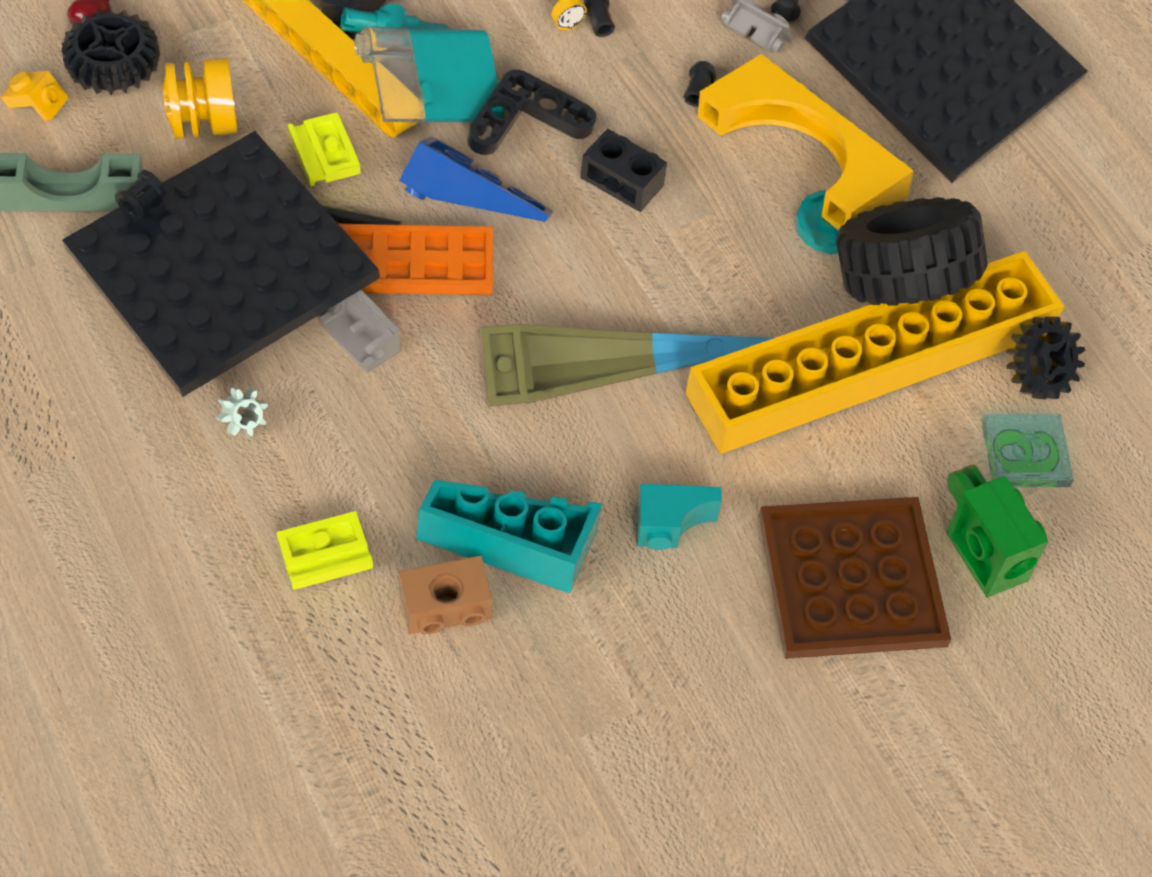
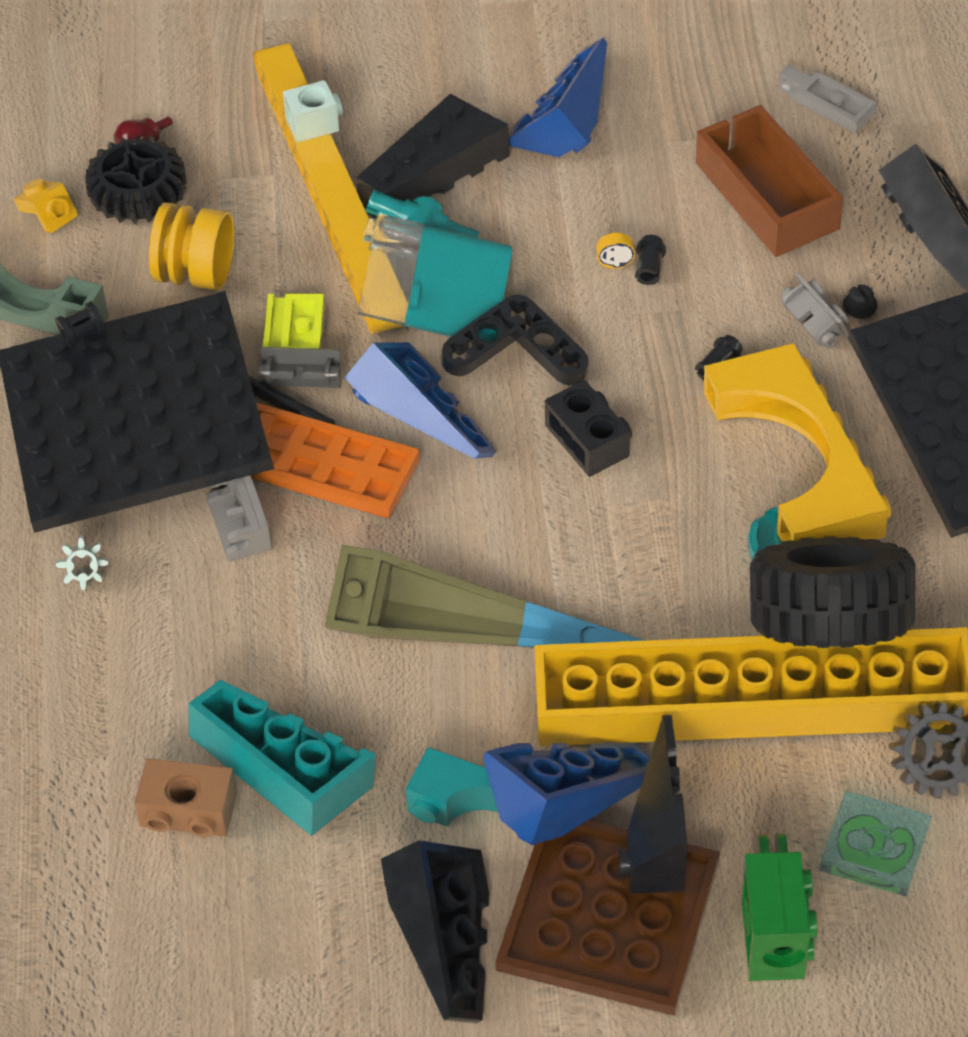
camera: 30 degrees right, 5 degrees down
(324, 550) = (95, 719): neon yellow plate -> none
(350, 181) = (300, 367): none -> dark grey hinge
(708, 613) = (439, 906): none -> black wedge
(769, 481) = (561, 788): none -> blue wedge
(875, 491) = (657, 828): none -> black wedge

